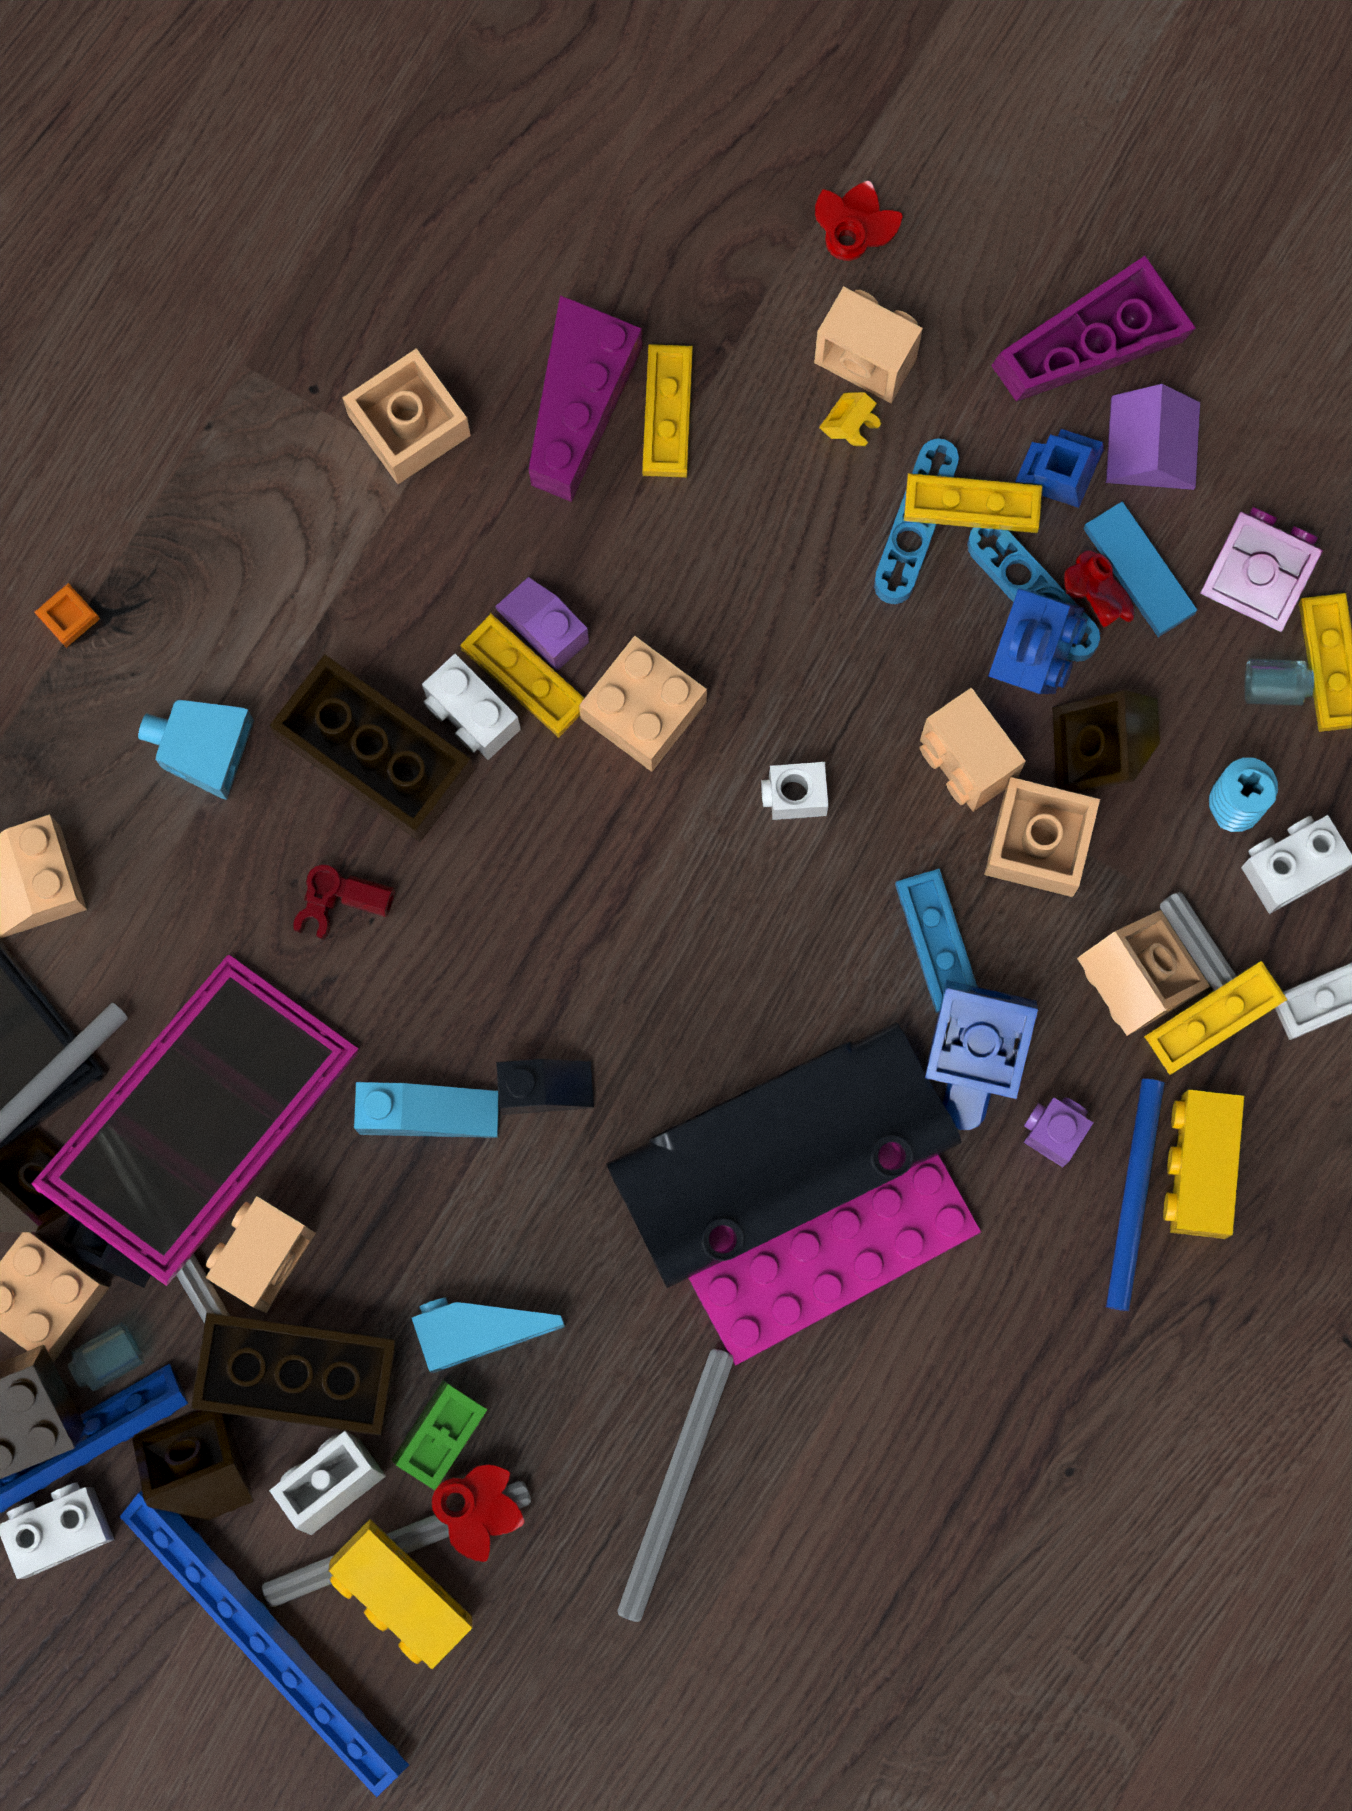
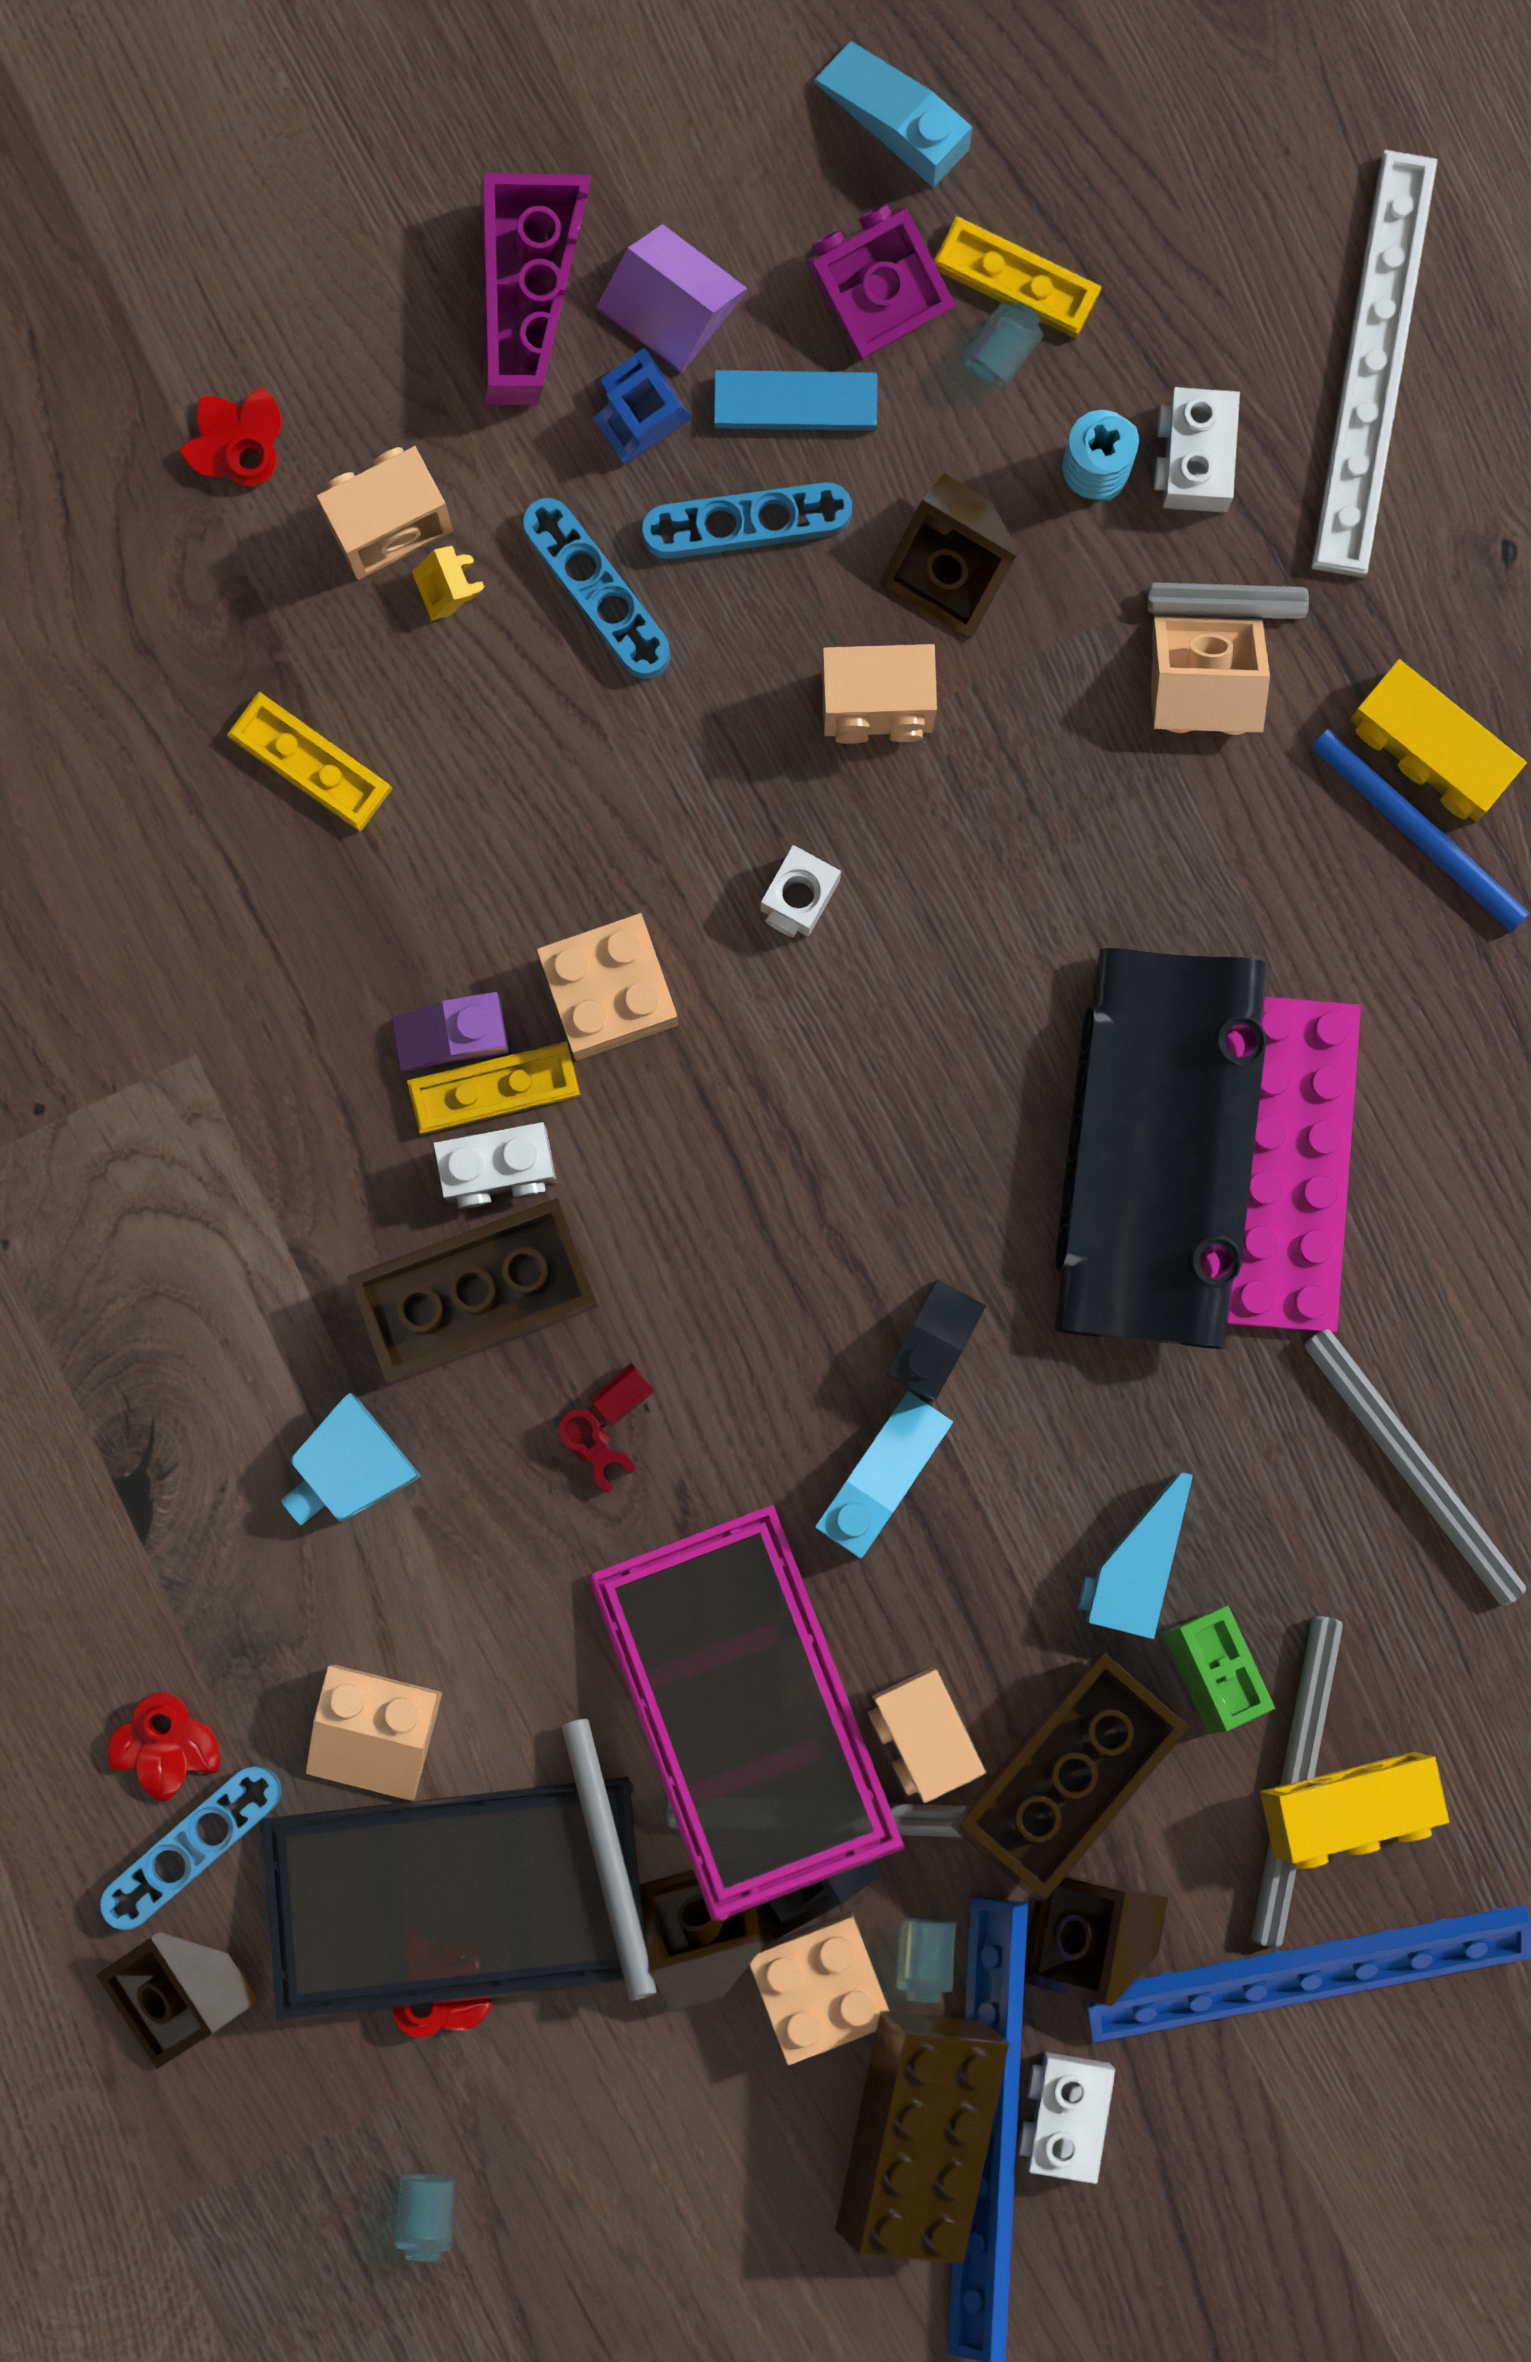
camera: 60 degrees left, 5 degrees up
(67, 615) = (114, 1518): orange tile -> none
(327, 1482) = (1197, 1811): white brick -> none
(407, 416) = (141, 1030): light nougat brick -> none
(484, 1513) = (1326, 1675): red plate -> none
(581, 387) = (224, 827): magenta wedge -> none
(934, 932) = (1041, 854): dark azure tile -> none
(973, 503) = (620, 519): yellow tile -> none
(979, 1048) = (1178, 888): brick -> none
(1038, 642) = (813, 551): blue brick -> none
(1042, 837) = (1010, 681): light nougat brick -> none
(1057, 1129) = (1311, 862): medium lavender brick -> none
(1094, 579) = (782, 454): red plate -> none
(1216, 1018) = (1301, 633): yellow tile -> none

